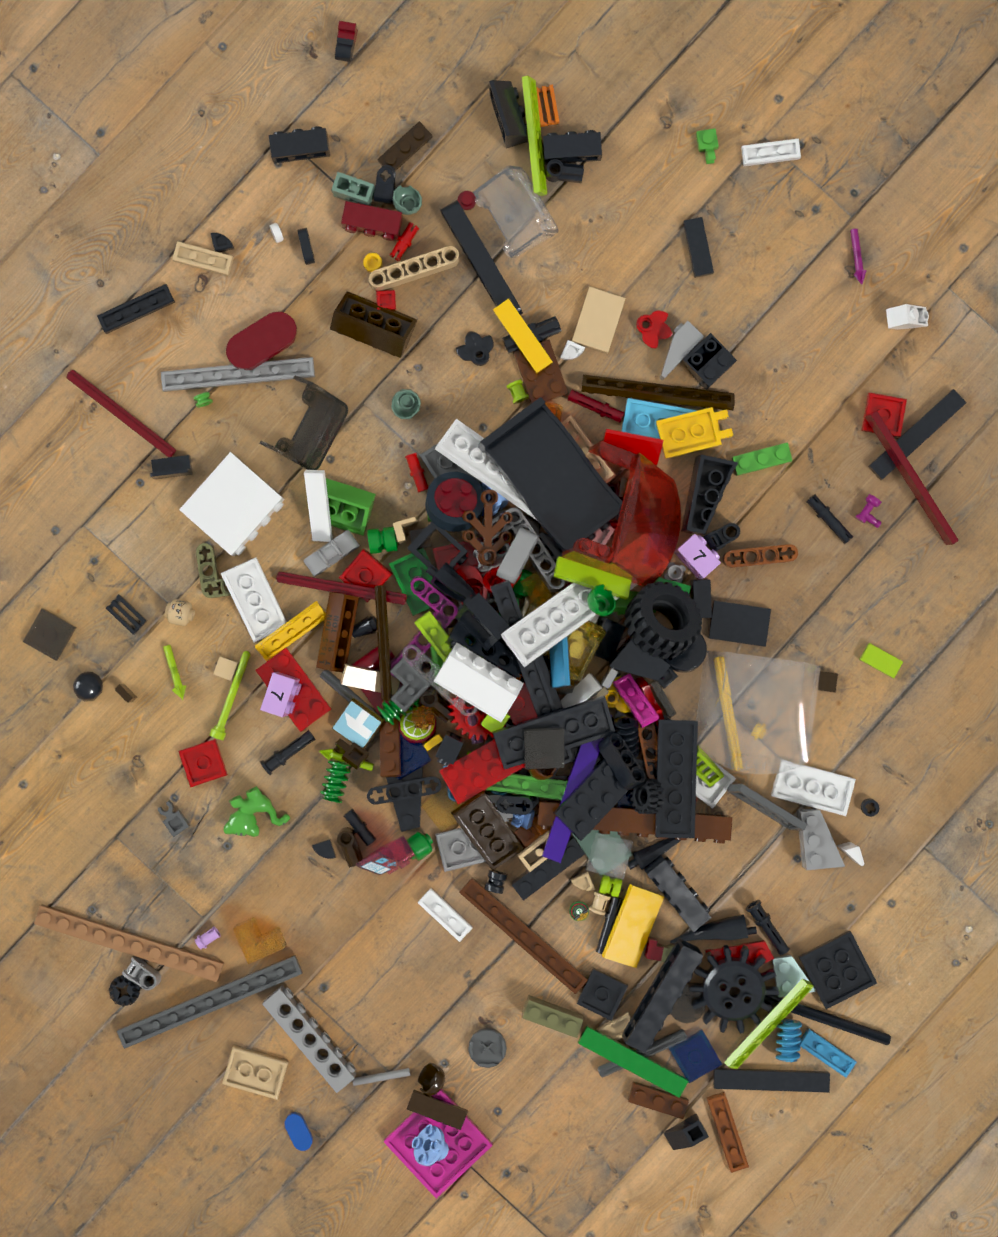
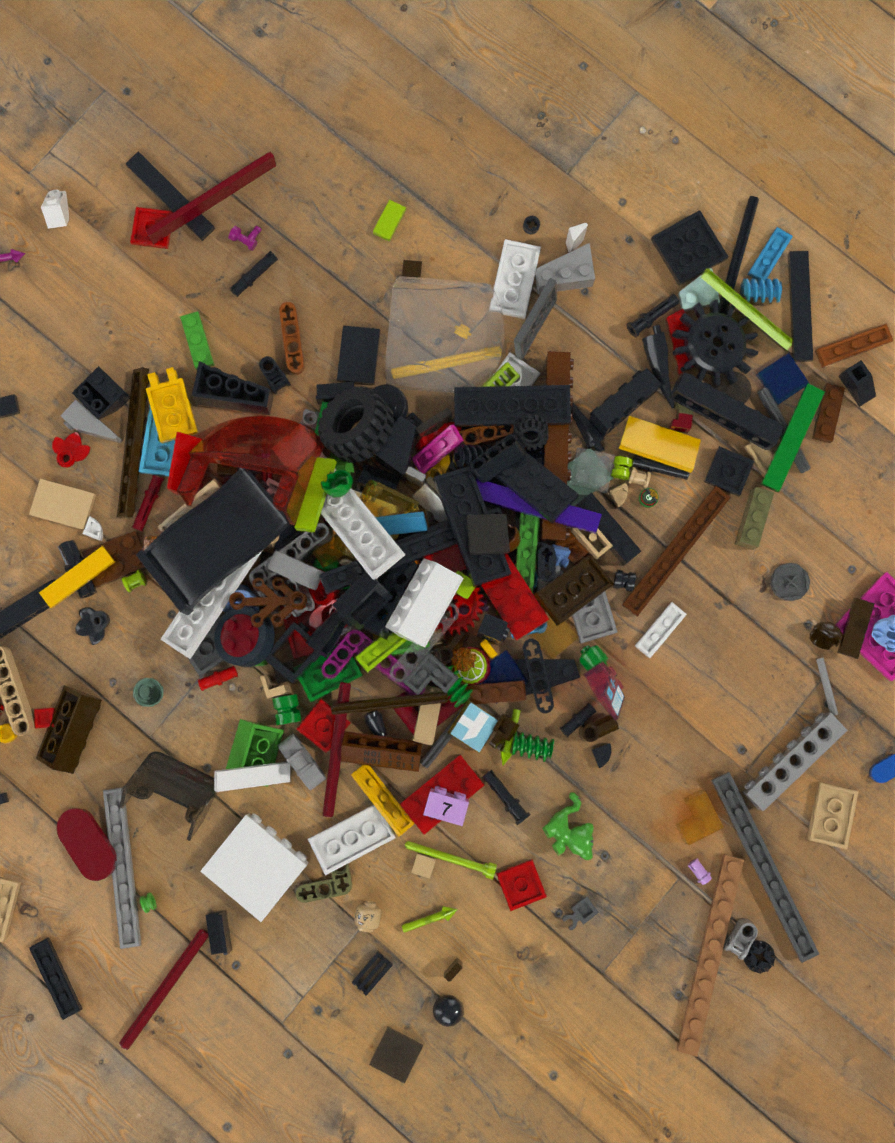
camera: 85 degrees left, 5 degrees down
(697, 556) = (293, 395): lavender brick -> none

